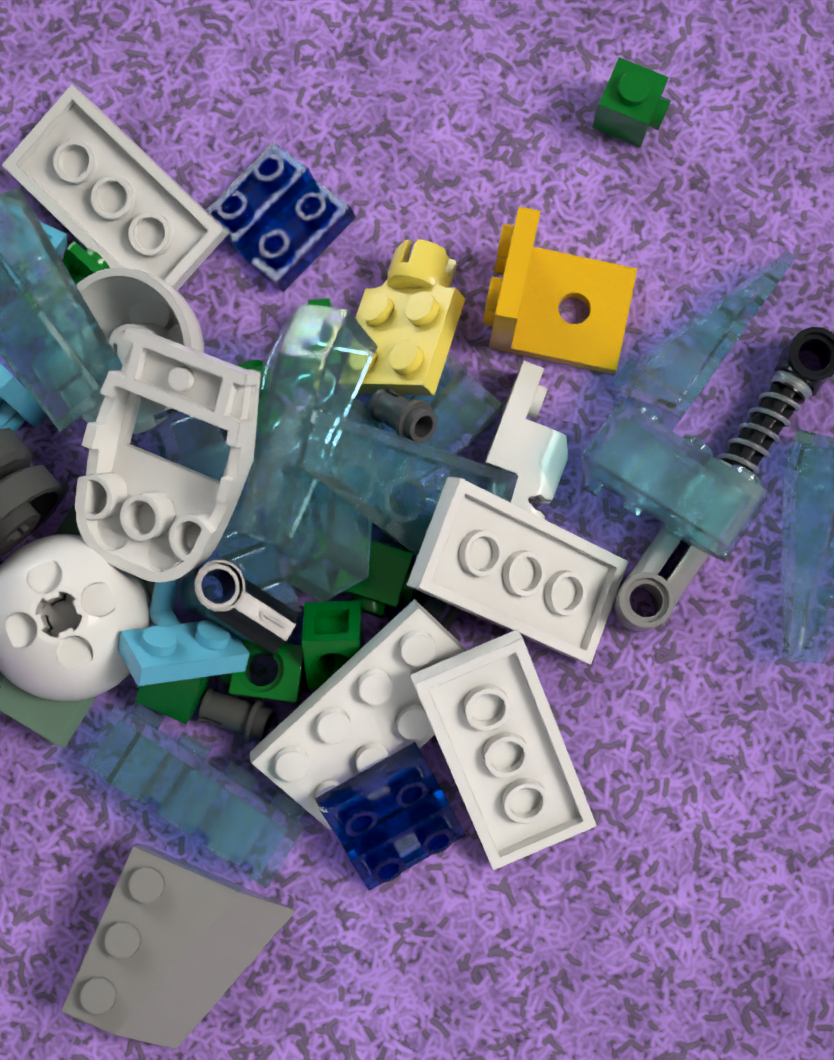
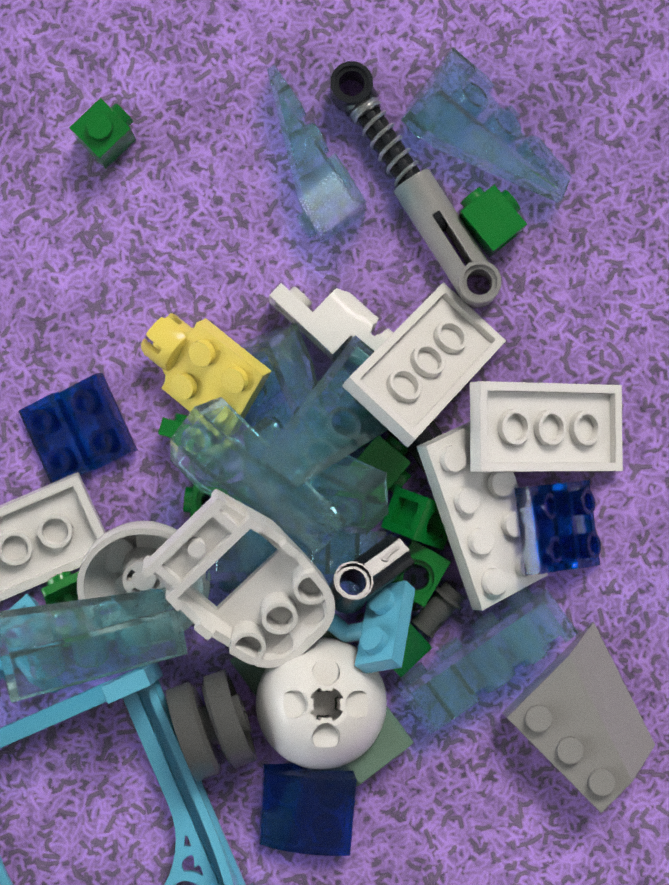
camera: 70 degrees left, 5 degrees up
(409, 418) = (284, 395): dark grey pin -> none
(535, 282) = (230, 277): yellow bracket -> none
(672, 480) = (405, 226): clear light blue wedge -> none
(729, 589) = (492, 218): none -> green brick

